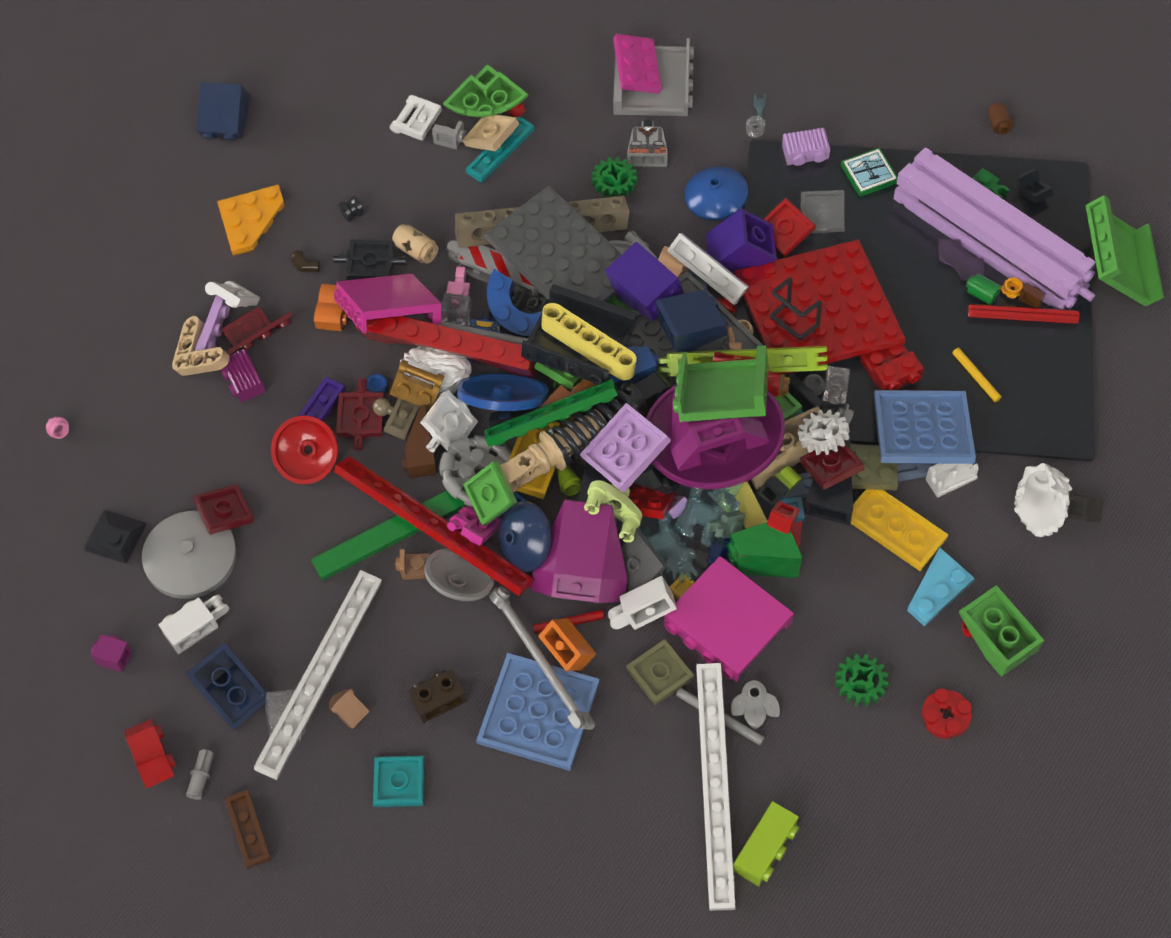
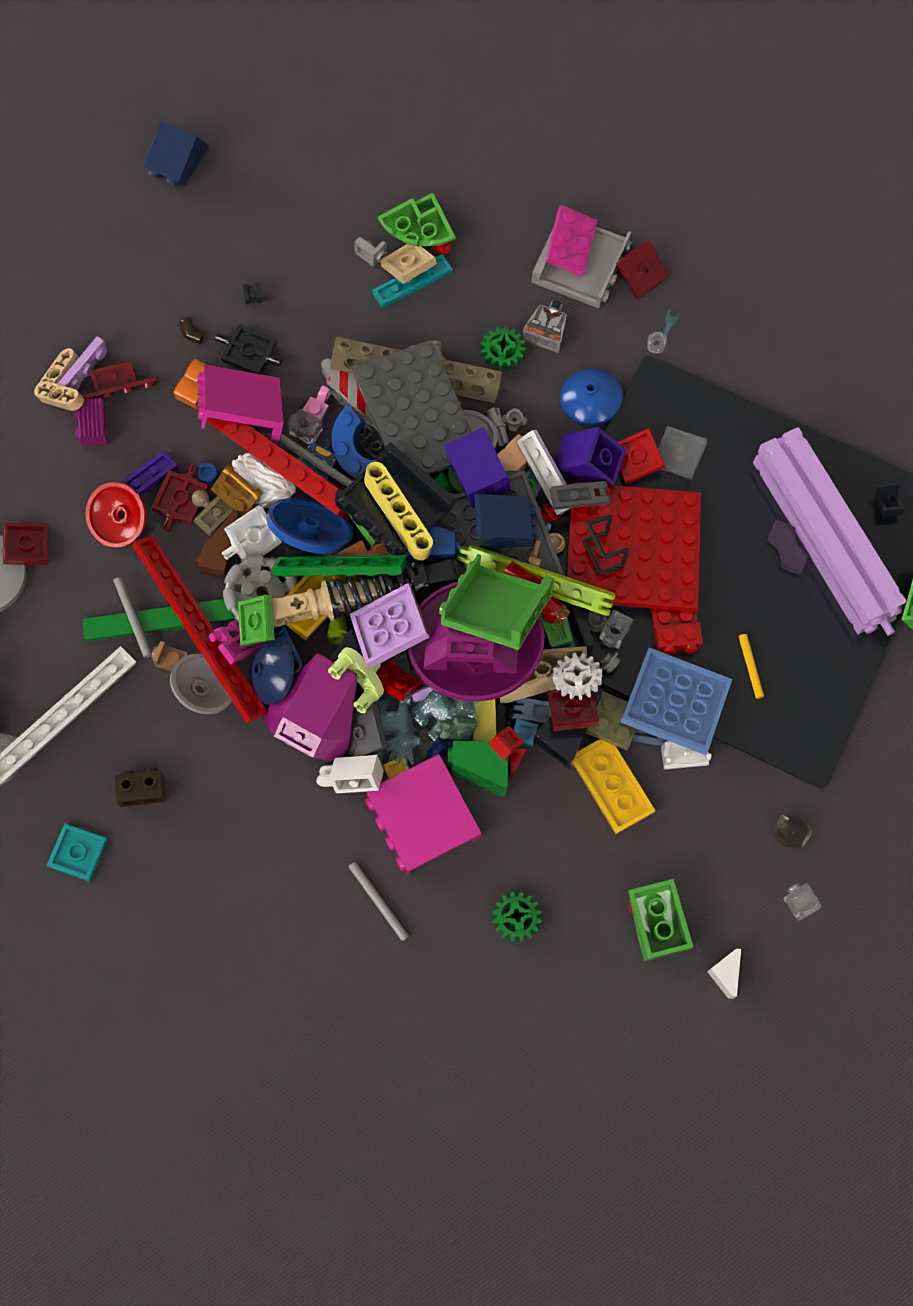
camera: 15 degrees right, 10 degrees up
(233, 294) = (112, 340): white plate -> none
(249, 216) = (160, 267): light orange plate -> none
(348, 707) = (59, 769): medium nougat tile -> none
(361, 539) = (133, 619): none -> light grey piece
(415, 243) = (291, 342): tan piece -> none
(420, 121) = (351, 226): white plate -> none
(529, 715) = (221, 836): medium blue plate -> none
(567, 644) = (270, 785): orange brick -> none
(575, 620) = (283, 762): red bar -> none
(578, 719) = (248, 859): light grey hinge -> none
(653, 231) = (514, 414): none -> light grey plate
(660, 672) = (342, 840): olive plate -> none
(713, 67) = (642, 268): none -> dark red plate
(715, 788) = (344, 965): white plate -> none
(749, 276) = (579, 495): none -> dark grey plate
(757, 707) = (411, 905): light grey plate -> none
(766, 844) = (367, 1035): lime brick -> none
(780, 484) = (521, 708): leg -> none
(806, 146) = (692, 382): lavender brick -> none
(869, 172) = (741, 428): tile -> none
(939, 587) = (626, 856): medium azure wing -> none
(950, 727) = (593, 977): red plate -> none
(983, 288) = (794, 584): green brick -> none
(990, 182) = (847, 479): green plate -> none
(1000, 118) = (890, 417): reddish brown brick -> none
(1013, 283) = (826, 589): light orange plate -> none
(1023, 313) = (822, 622): red axle -> none
(1031, 296) = (836, 609): reddish brown plate -> none
(1042, 499) = (755, 811): white hair -> none
(1085, 657) = (727, 973): none -> white slope
(1123, 566) = (802, 901): none -> clear brick

